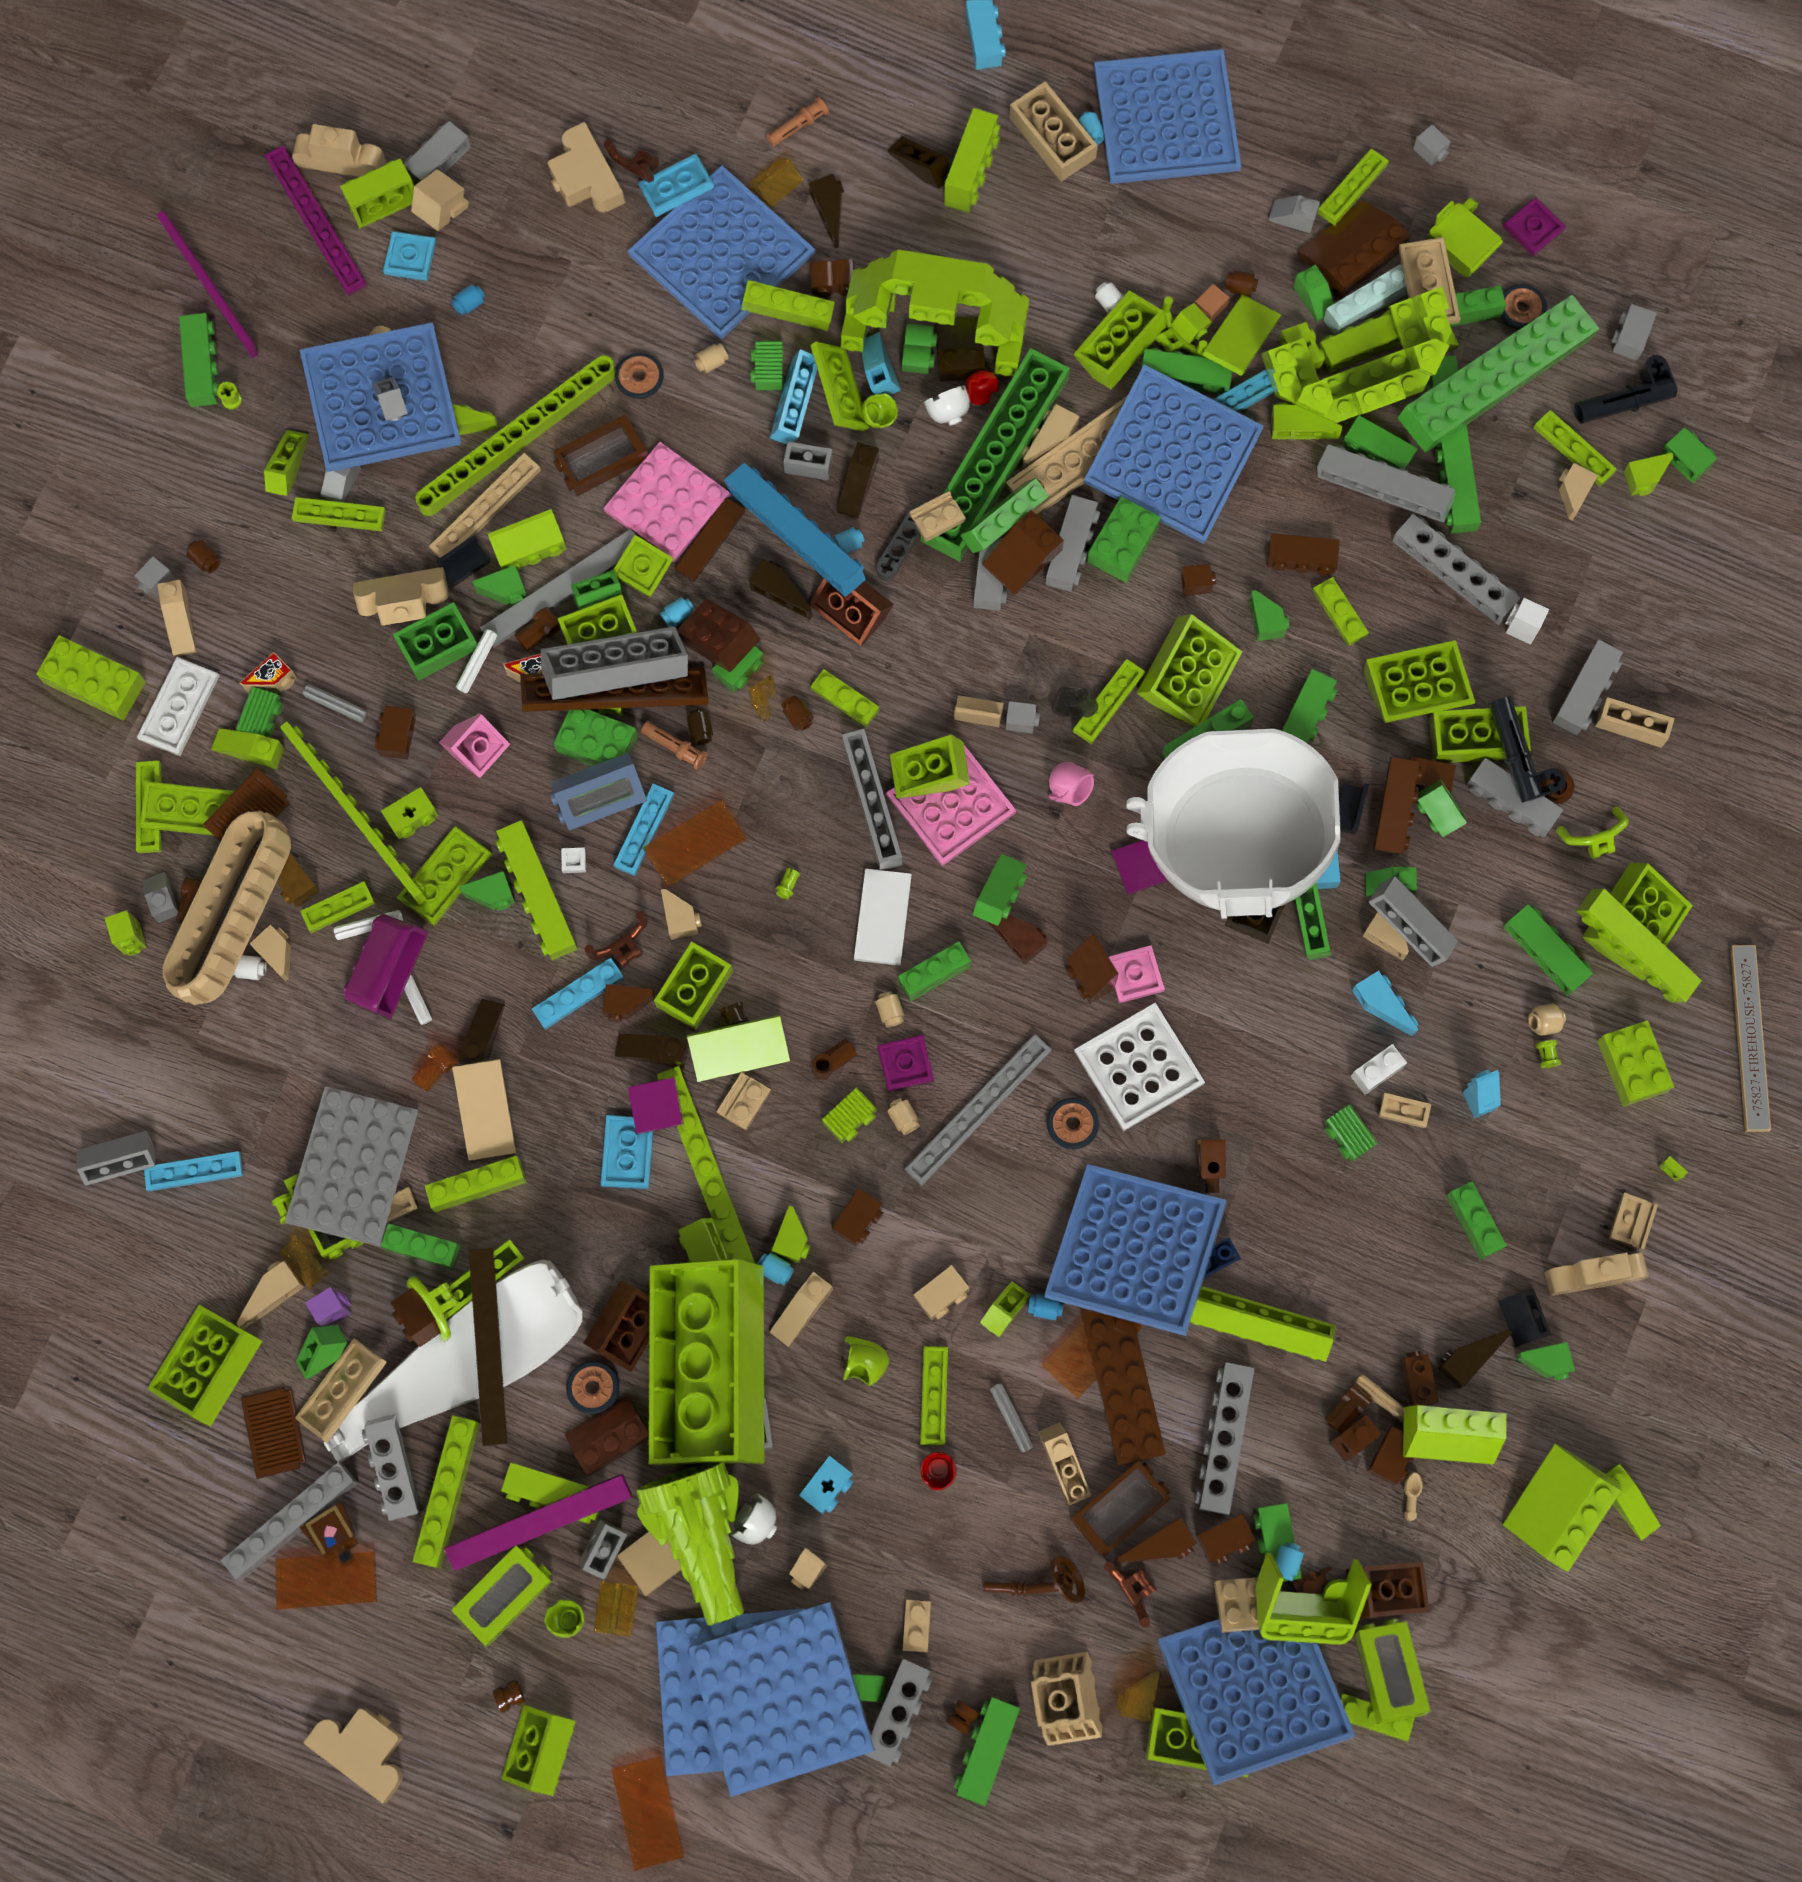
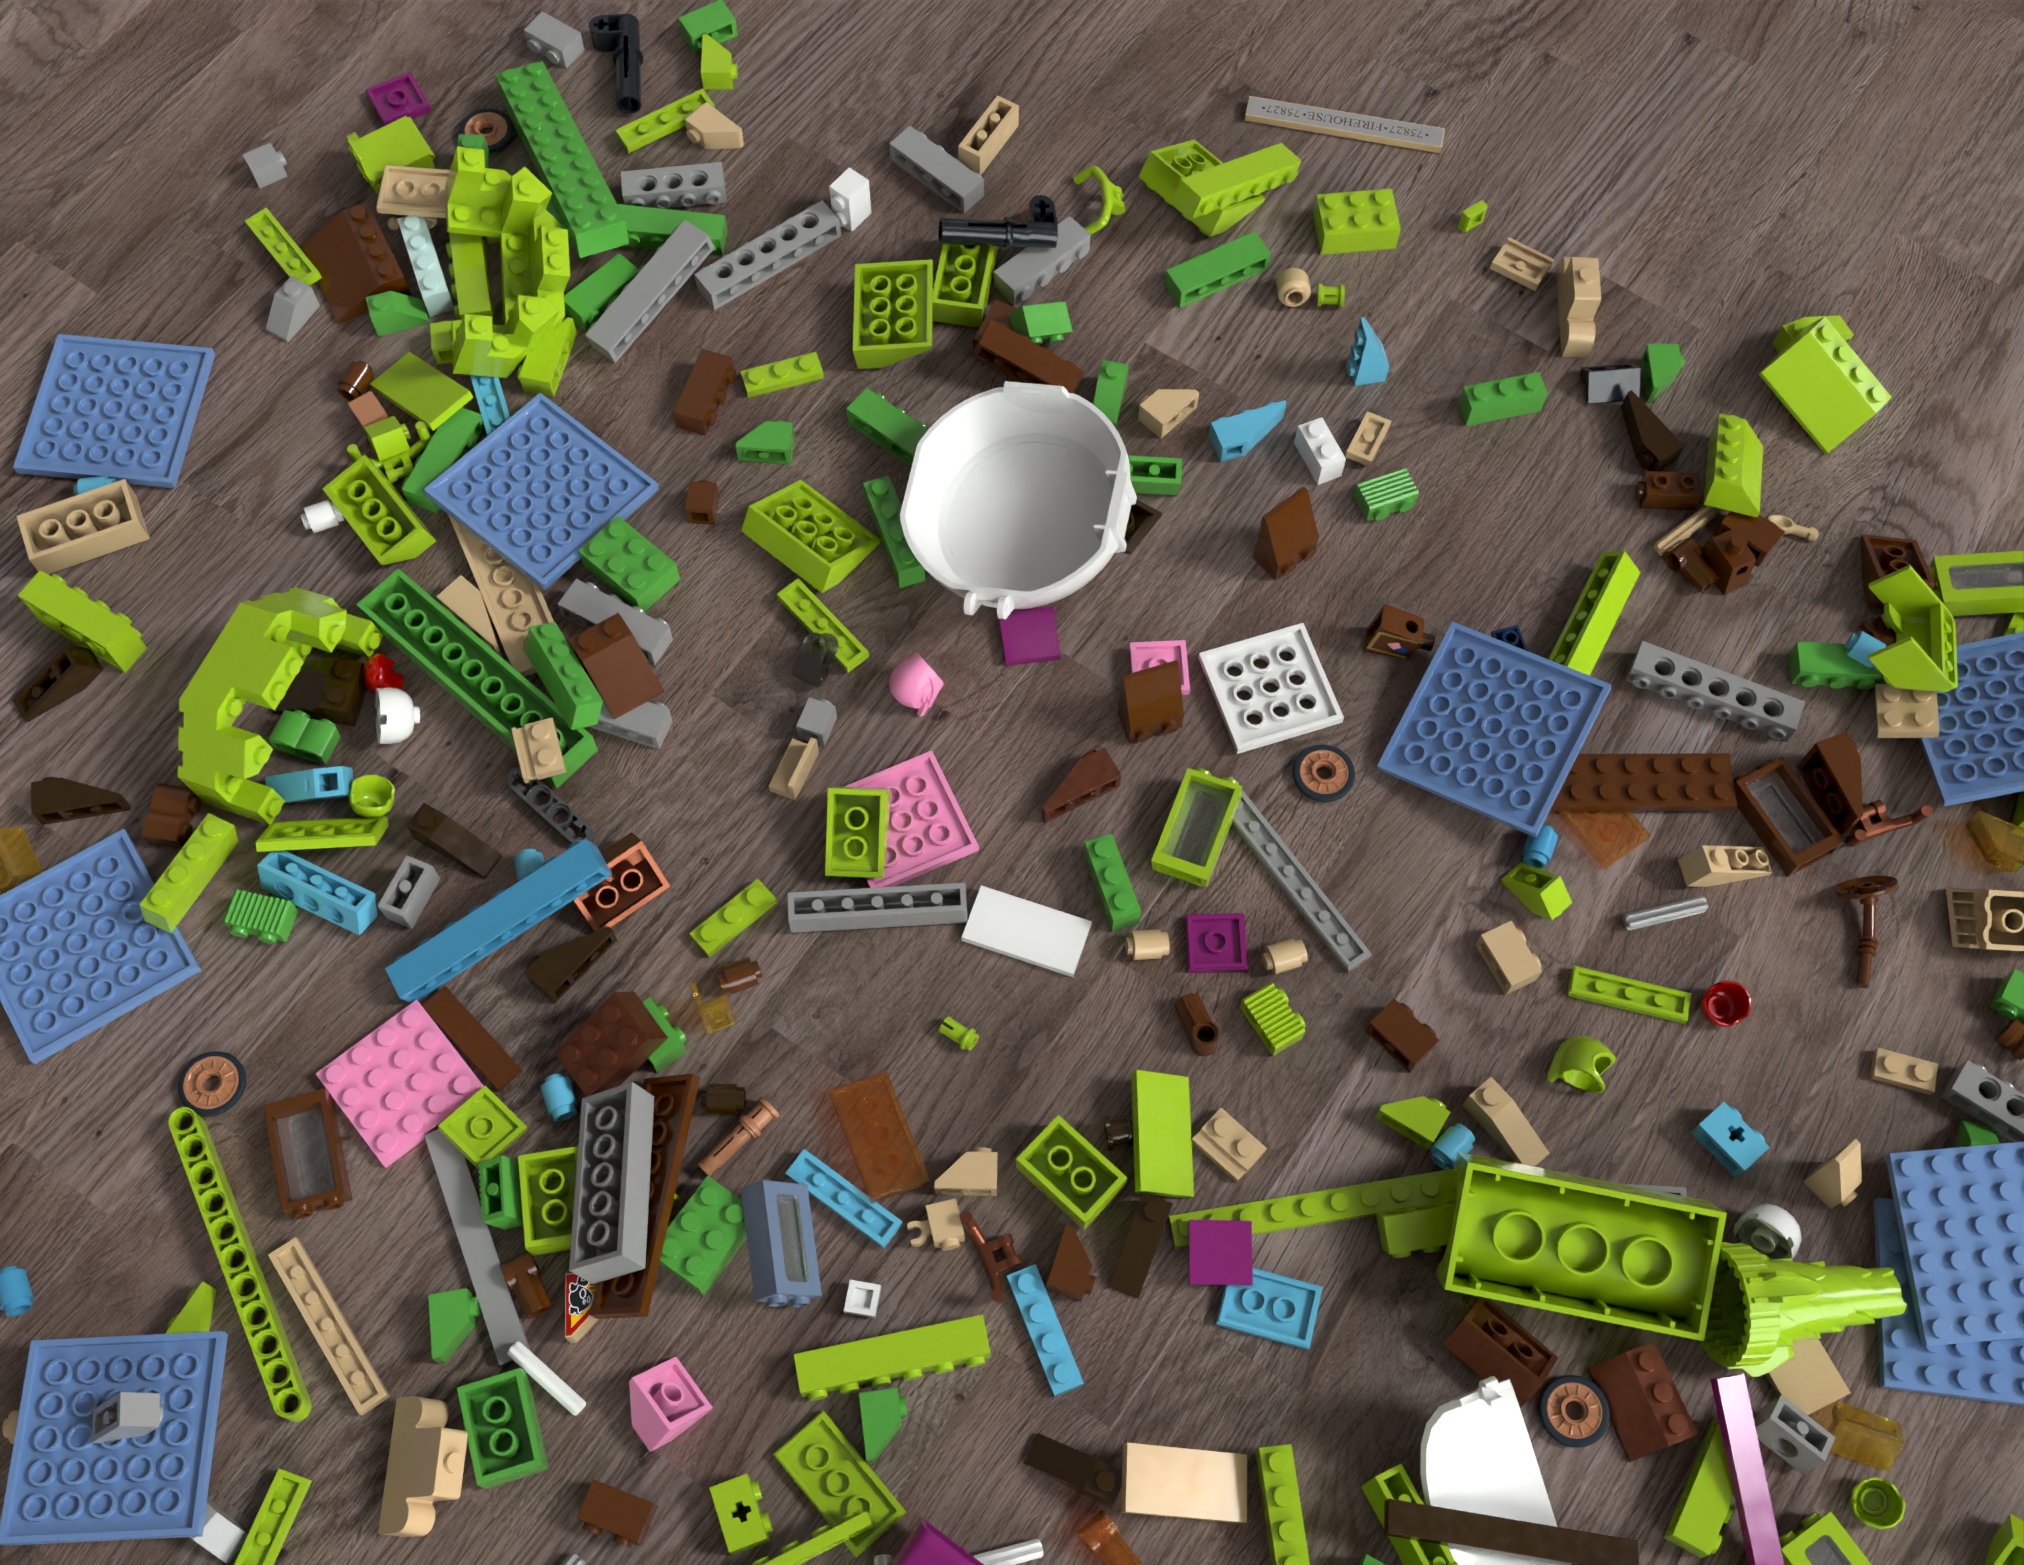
camera: 80 degrees left, 10 degrees down
(463, 561) = (396, 1369): black panel -> none
(528, 541) = (400, 1272): lime slope -> none
(636, 901) = (942, 1224): none -> tan brick
(711, 358) = (223, 985): tan brick -> none
(996, 1028) = (1197, 827): none -> piece
(1000, 890) = (1031, 783): bright green brick -> none
(1225, 1539) = (1827, 712): reddish brown brick -> none
(1277, 1052) = (1287, 535): none -> reddish brown slope
(1413, 921) = (1164, 374): light grey brick -> none
(1515, 482) = (675, 186): none -> light grey brick

